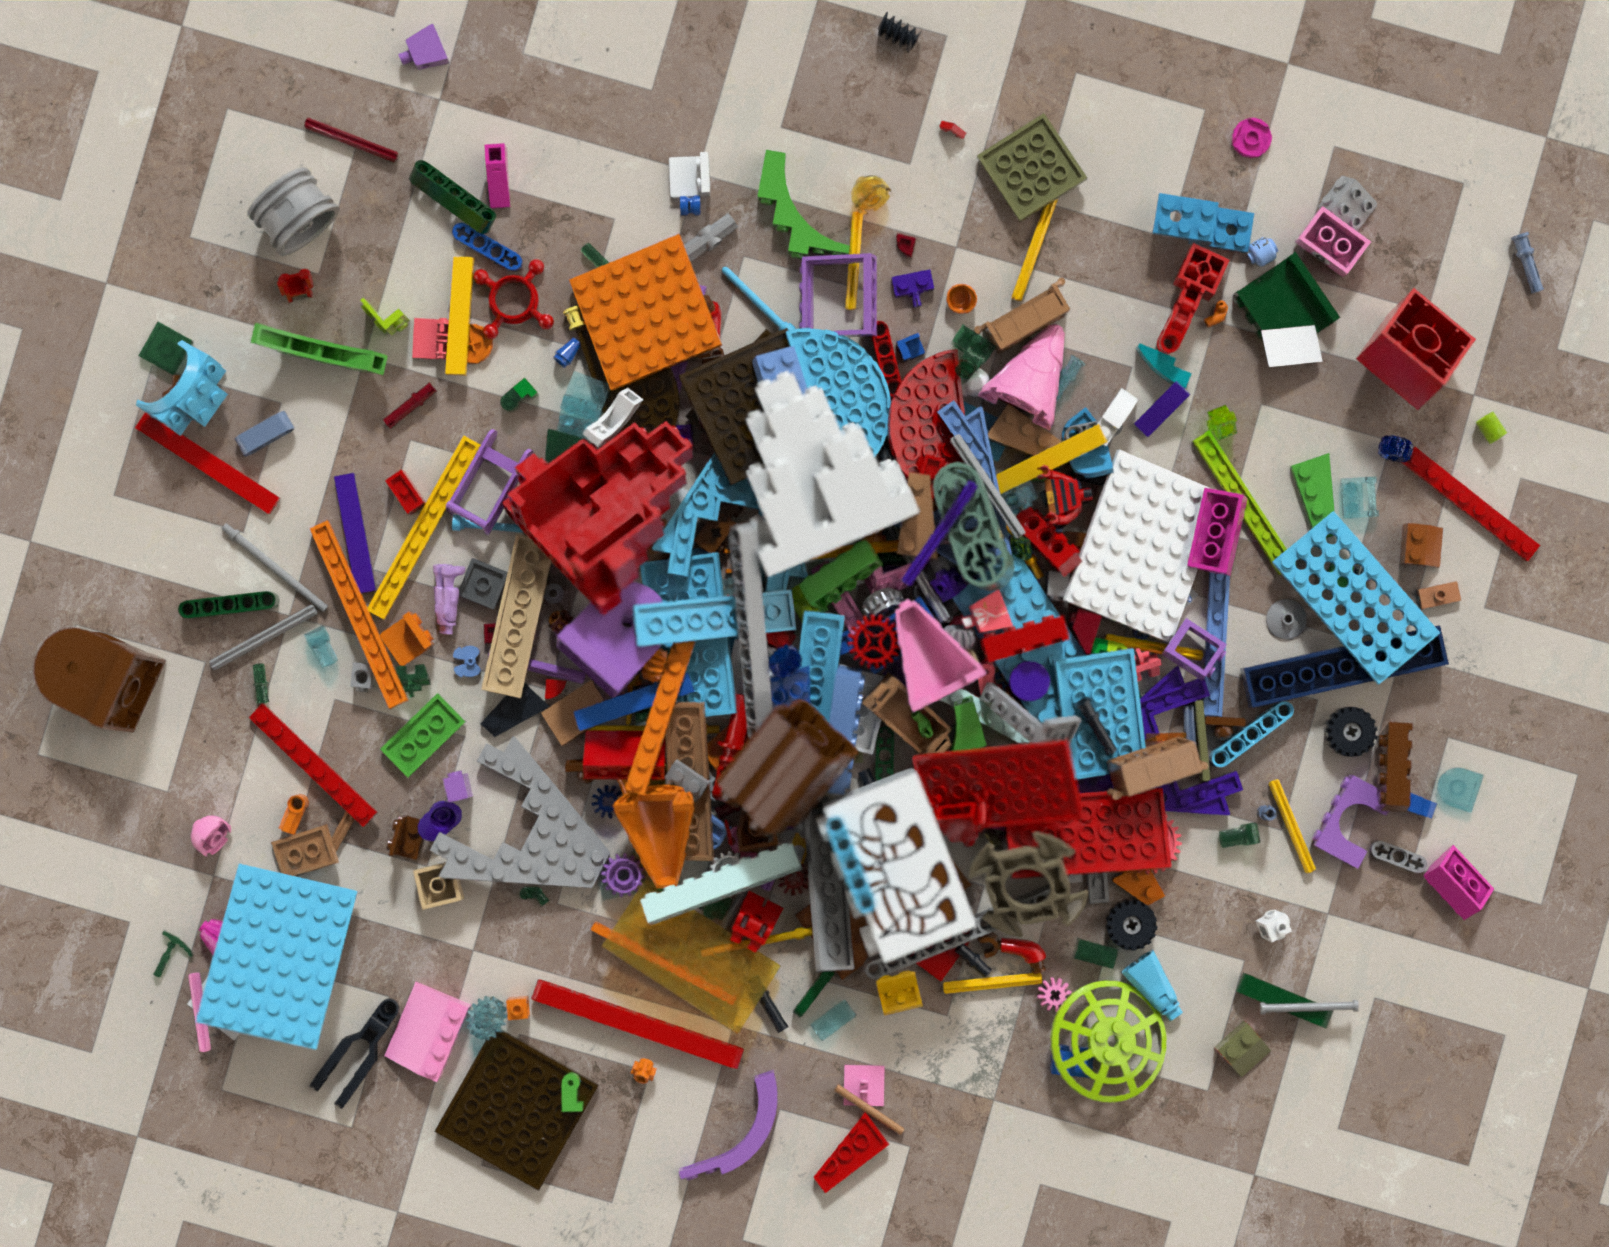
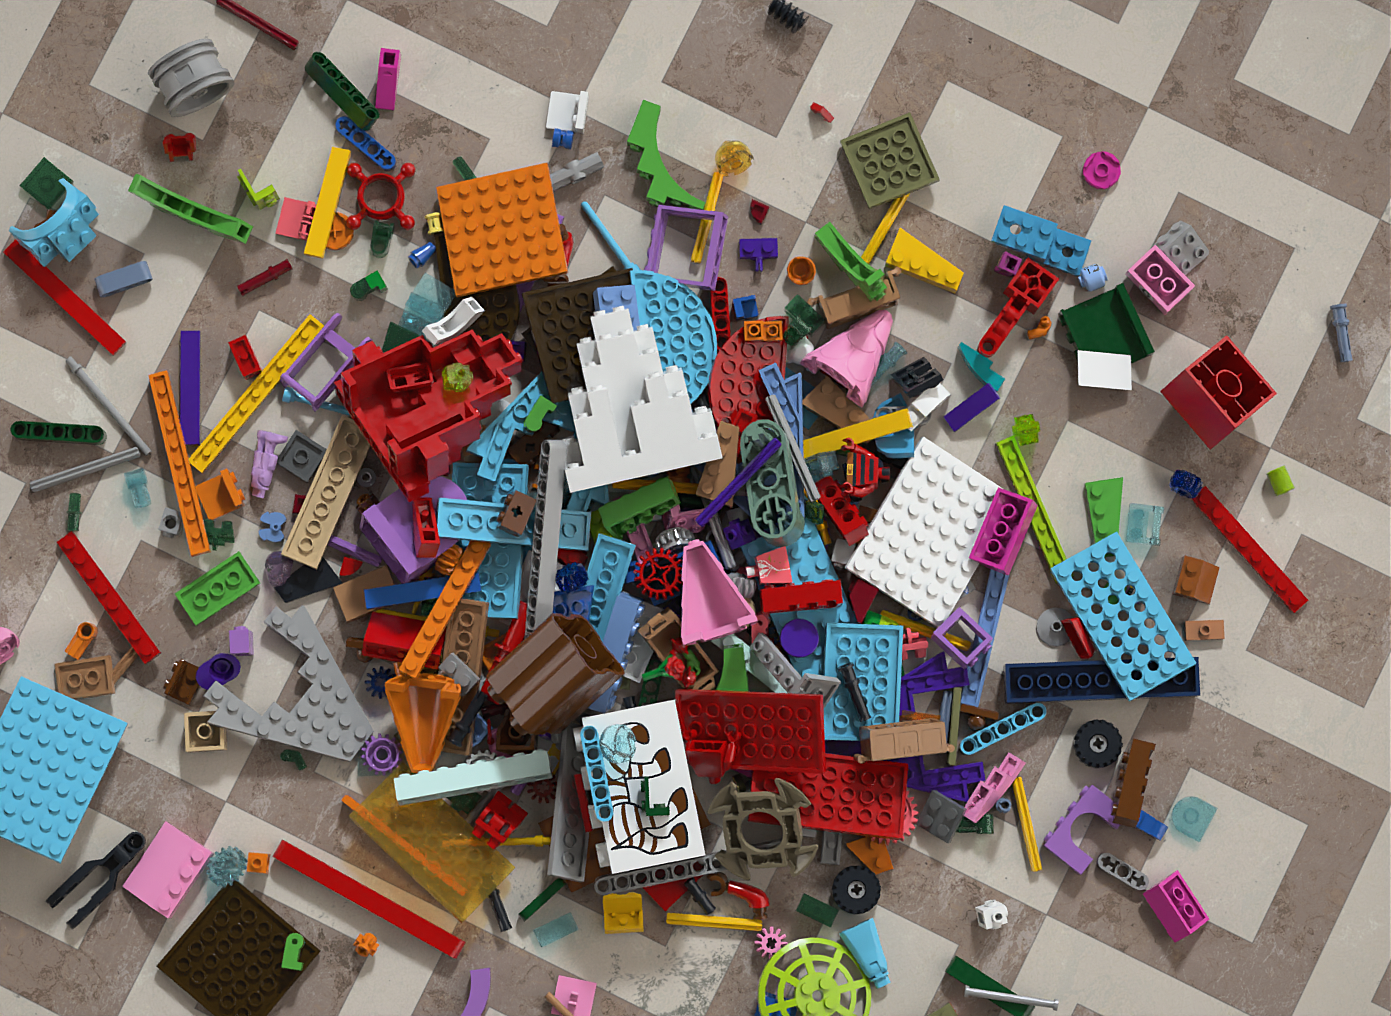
camera: 10 degrees right, 5 degrees down
(481, 704) = (278, 568): none -> clear purple hair
(522, 339) = (381, 234): none -> clear green piece
(576, 478) = (408, 373): none -> red piece
(625, 640) = (425, 528): none -> red slope
(628, 475) = (457, 377): none -> clear neon green brick
(702, 833) = (463, 726): none -> black pin
(719, 493) = (534, 418): none -> bright green leg
(723, 597) = (524, 505): none -> reddish brown brick
(839, 889) = (583, 802): none -> red tile
(866, 829) = (617, 743): none -> clear light blue tile
(908, 734) = (674, 666): none -> red plant
(921, 889) = (659, 809): none -> dark green bracket
(934, 369) = (763, 331): none -> orange slope
(1004, 277) = (847, 260): none -> bright green arch
(1085, 268) = (922, 263): none -> yellow wedge
(1093, 394) = (915, 377): none -> black plate
(1173, 254) = (1007, 264): none -> magenta leg
(1205, 835) = (941, 816): none -> dark grey plate
(1253, 795) = (995, 786): none -> bright pink slope
(1313, 626) = (1079, 637): none -> red piece

